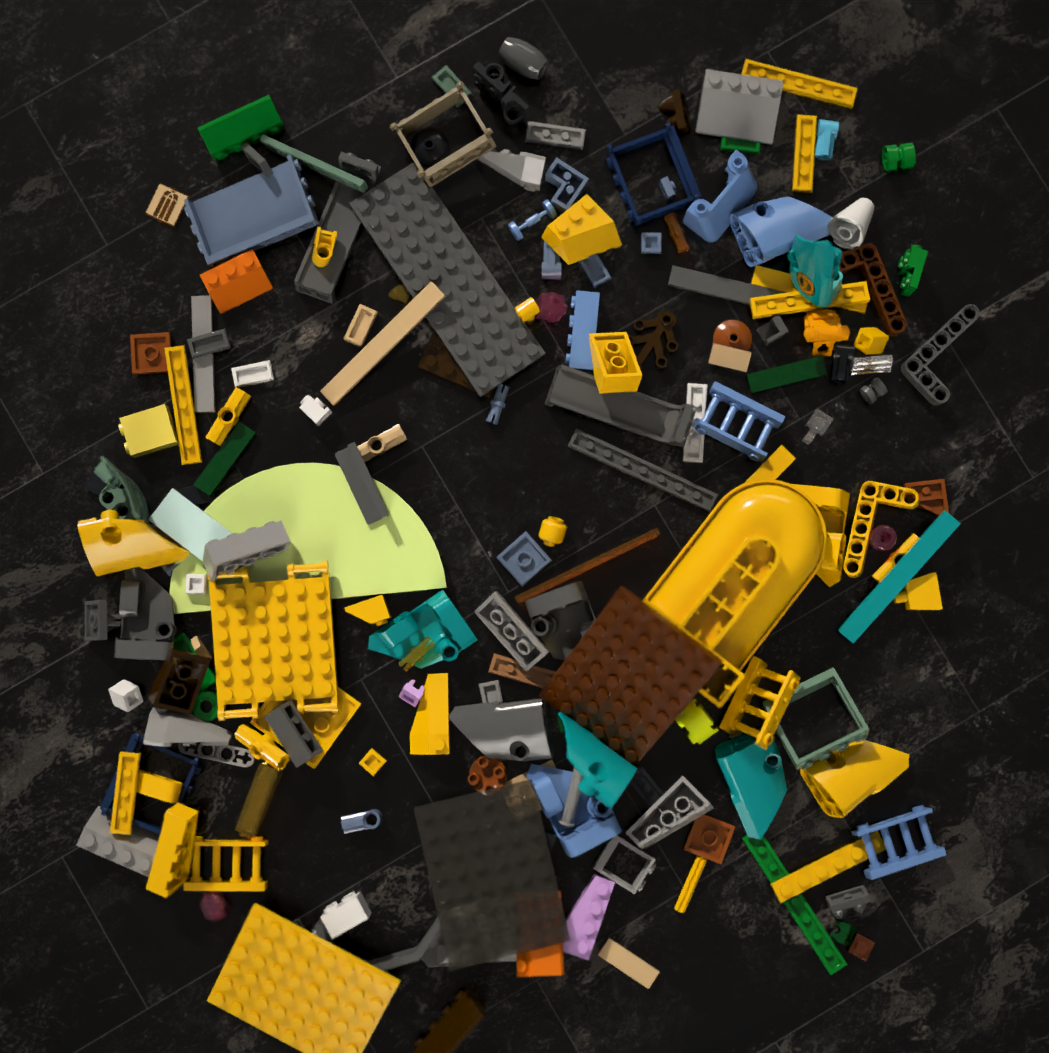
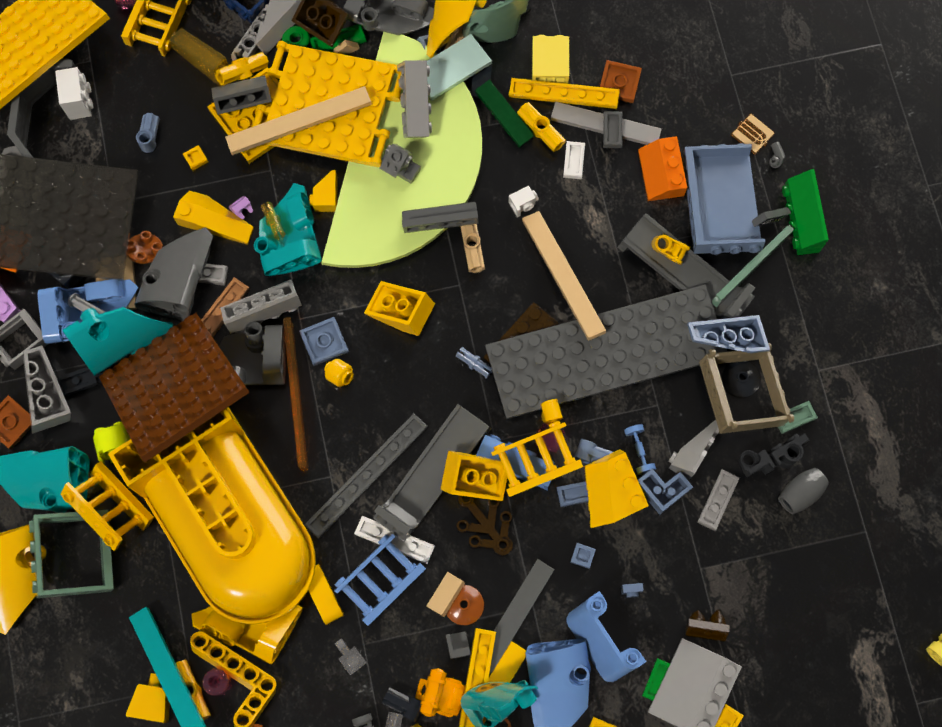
camera: 110 degrees right, 10 degrees down
(184, 172) = (778, 157): none -> dark grey arm
(196, 584) = (400, 54): white tile -> none
(305, 661) = (298, 120): none -> tan tile
(321, 542) = (397, 159): none -> dark grey tile
(360, 325) = (588, 265): tan tile -> none
(395, 159) = (737, 333): none -> sand blue wedge
(400, 294) = (606, 306): clear yellow tile -> none
(466, 495) = (400, 307): none -> yellow slope
(586, 290) = (533, 478): none -> yellow fence
(676, 233) = (585, 584): clear orange pin -> none
(681, 164) = (650, 611): dark blue window -> none
(786, 374) = (410, 645): dark green tile -> none

